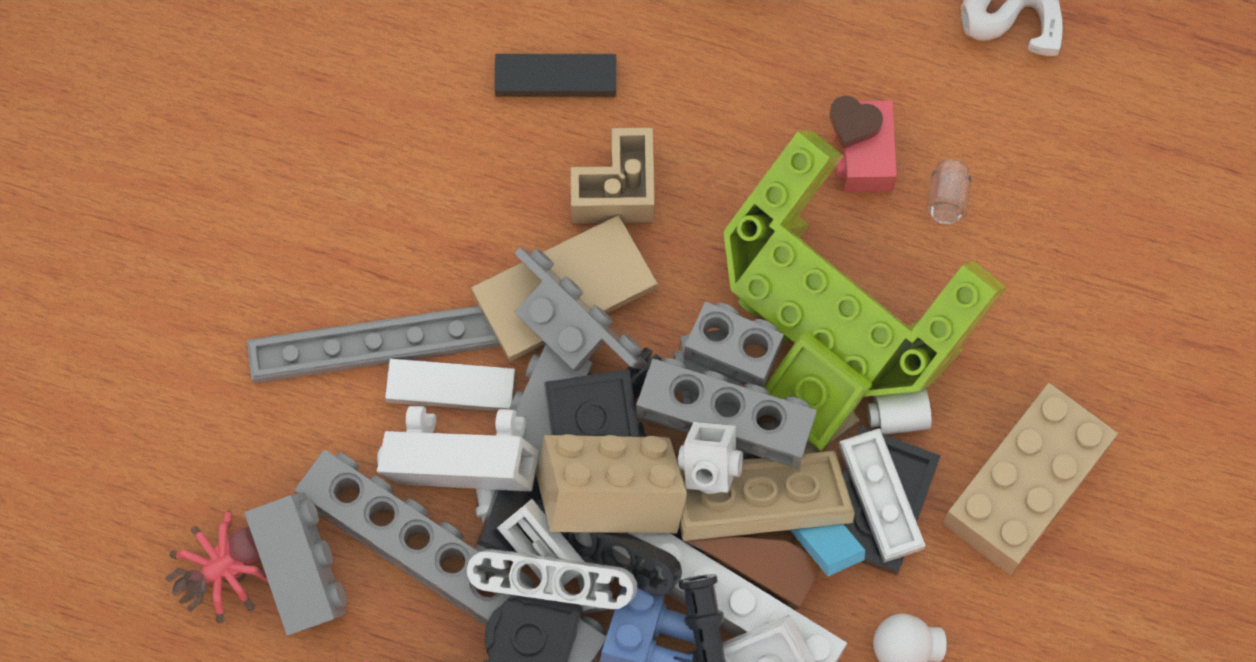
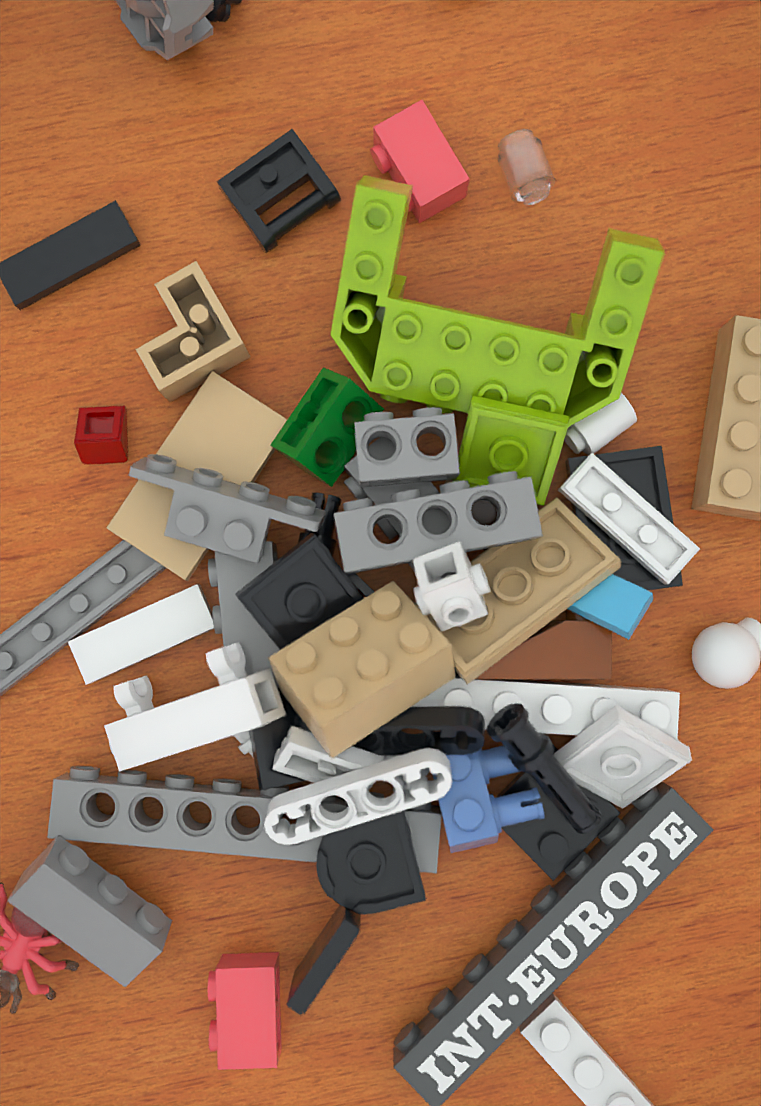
camera: 25 degrees left, 15 degrees up
(504, 221) = (102, 435): none -> red slope
(679, 293) = (322, 426): none -> green brick
(745, 99) = (269, 179): none -> black plate
(854, 121) = (396, 141): reddish brown tile -> none

